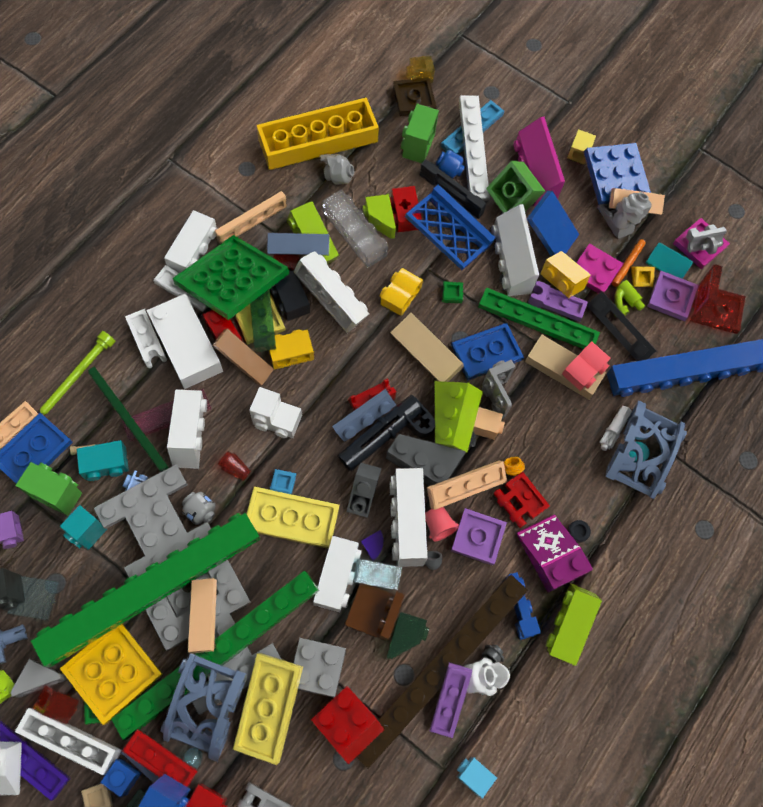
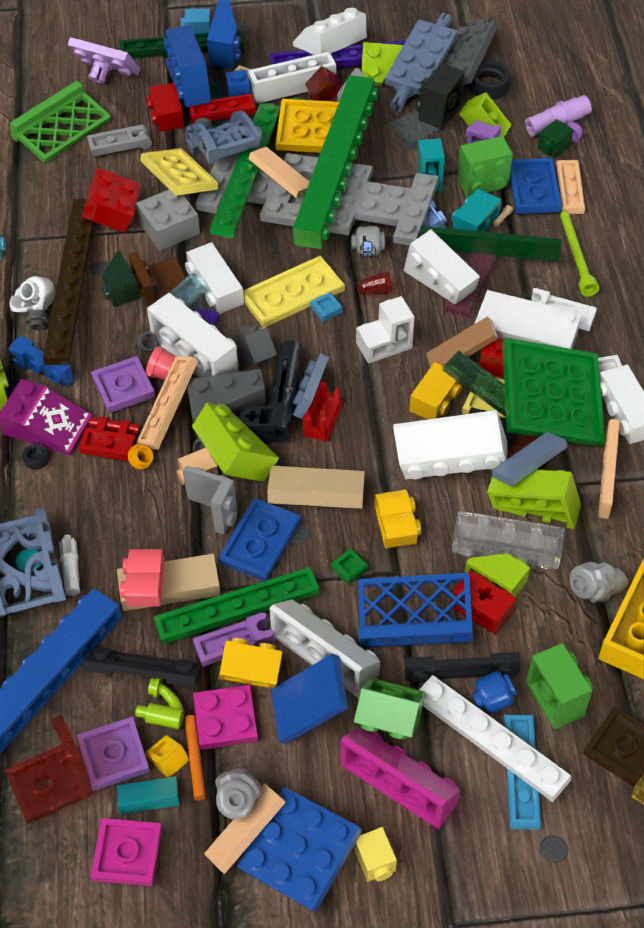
camera: 145 degrees right, 15 degrees down
(450, 700) = (45, 263): medium lavender tile -> none
(706, 240) = (116, 853): light grey hips -> none

